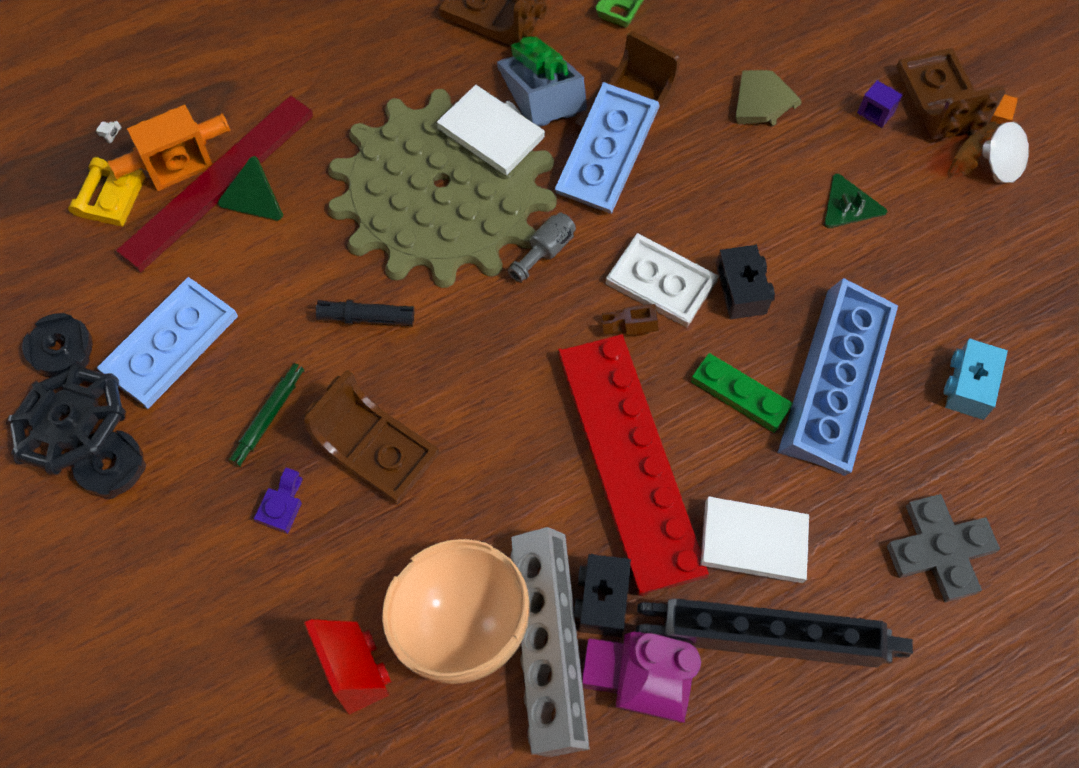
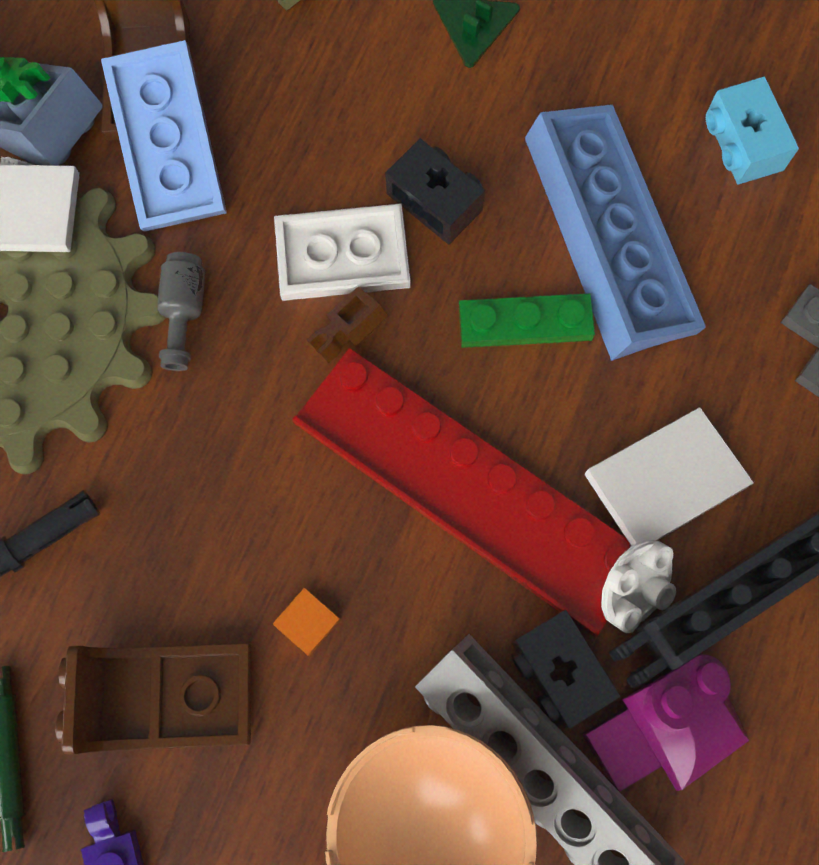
camera: 35 degrees left, 10 degrees up
(479, 464) = (306, 622): none -> orange tile
(686, 576) = (638, 585): none -> white dish

